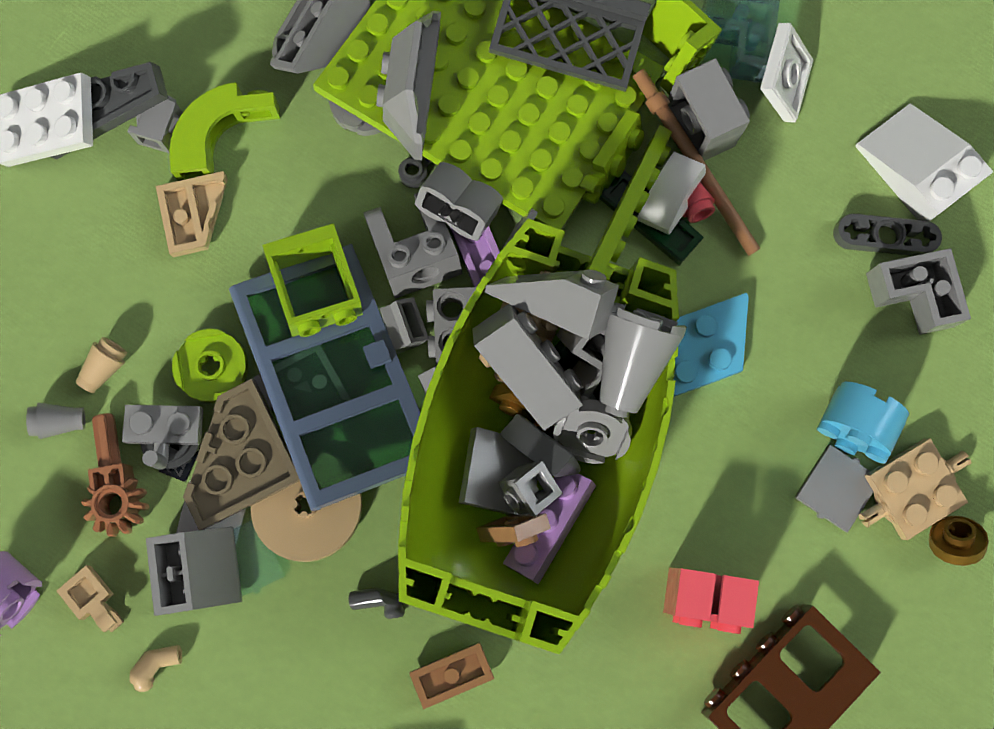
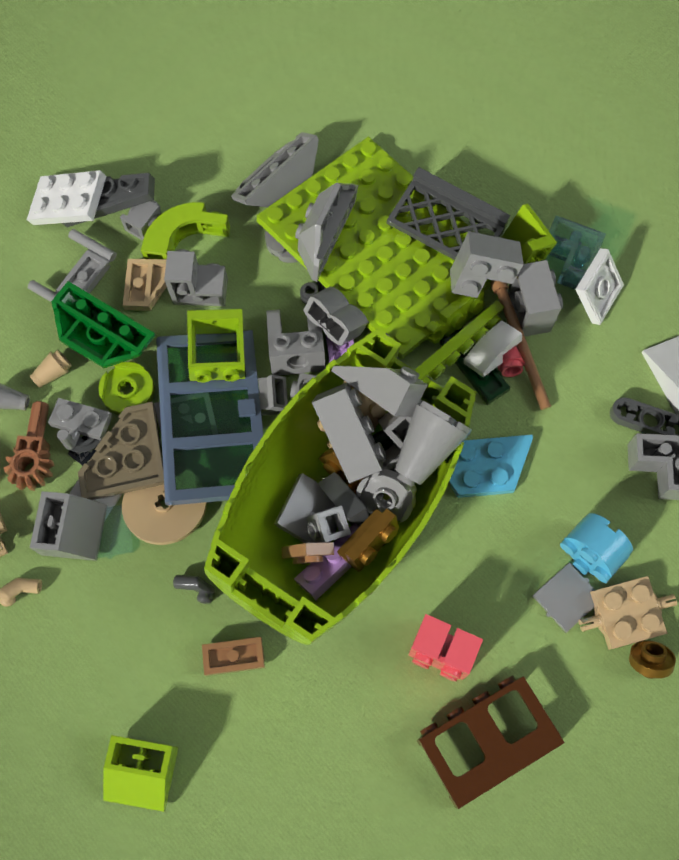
camera: 20 degrees right, 10 degrees down
(101, 226) = (87, 270): none -> light grey plate
(147, 297) = (97, 328): none -> green wedge
(256, 199) = (194, 283): none -> light grey brick
(585, 494) = (369, 539): none -> pearl gold bracket
(637, 78) = (483, 259): none -> light grey brick

